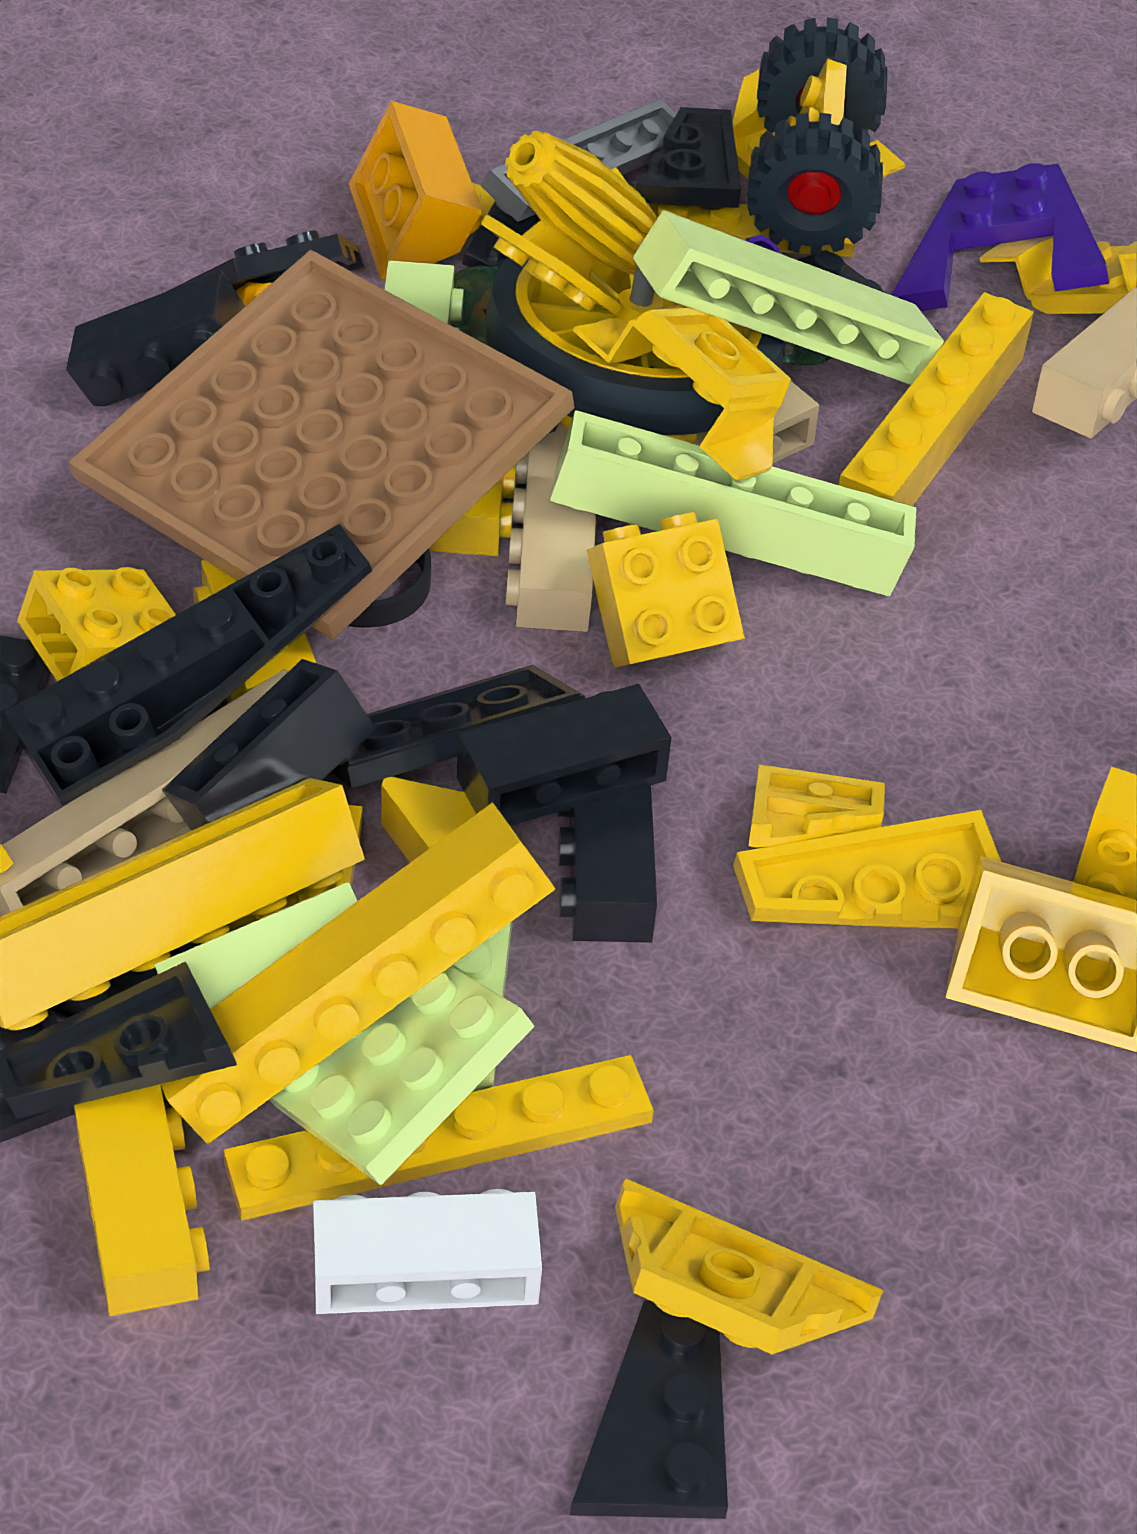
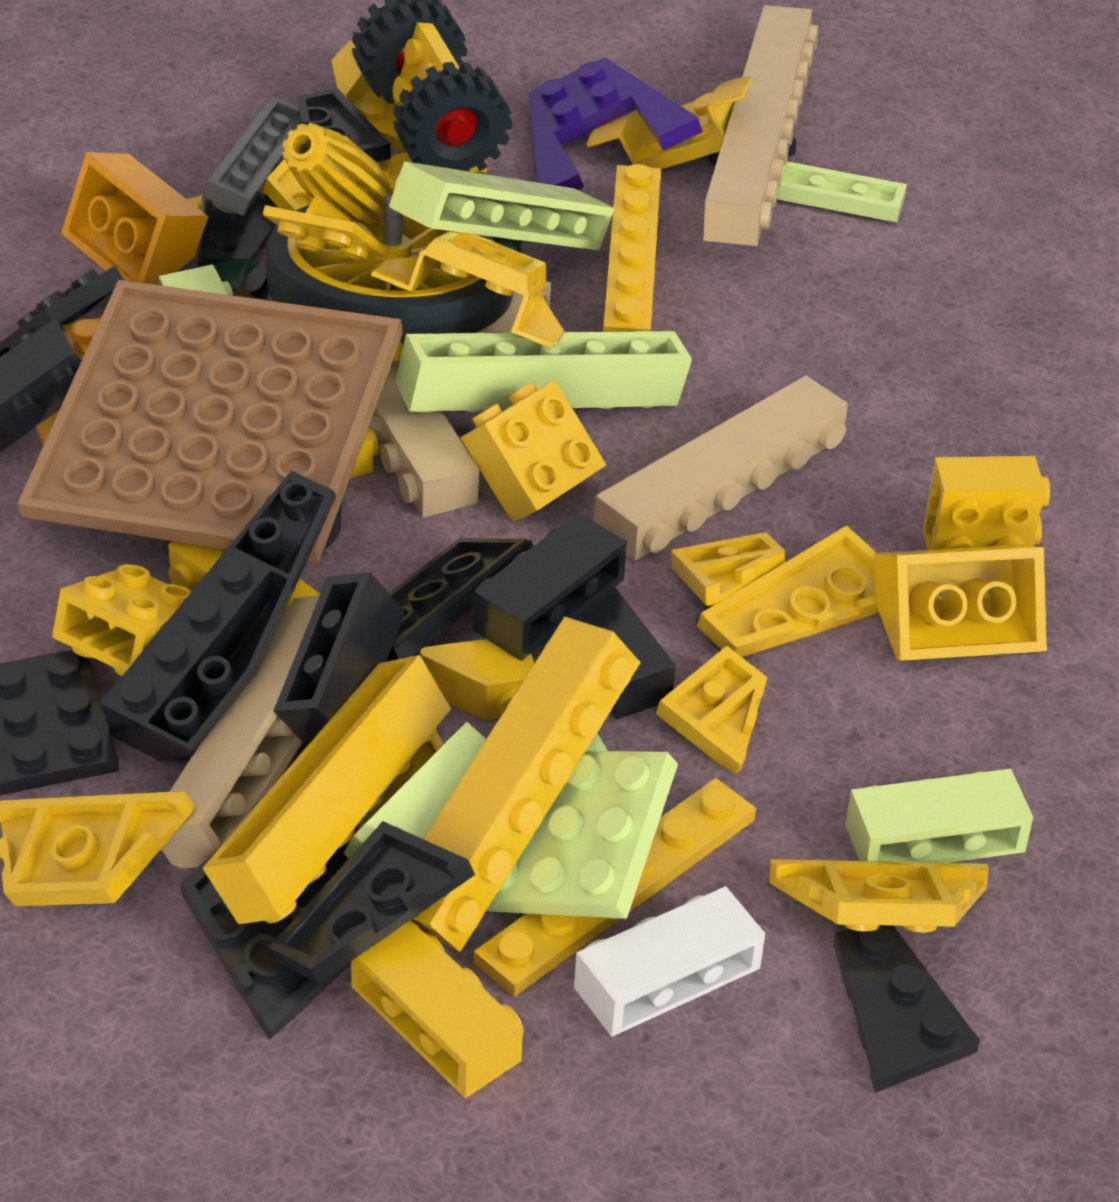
camera: 25 degrees left, 5 degrees down
(690, 971) = (717, 707): none -> yellow wing
(858, 1212) = (940, 819): none -> yellowish green brick
(883, 687) = (722, 466): none -> tan brick

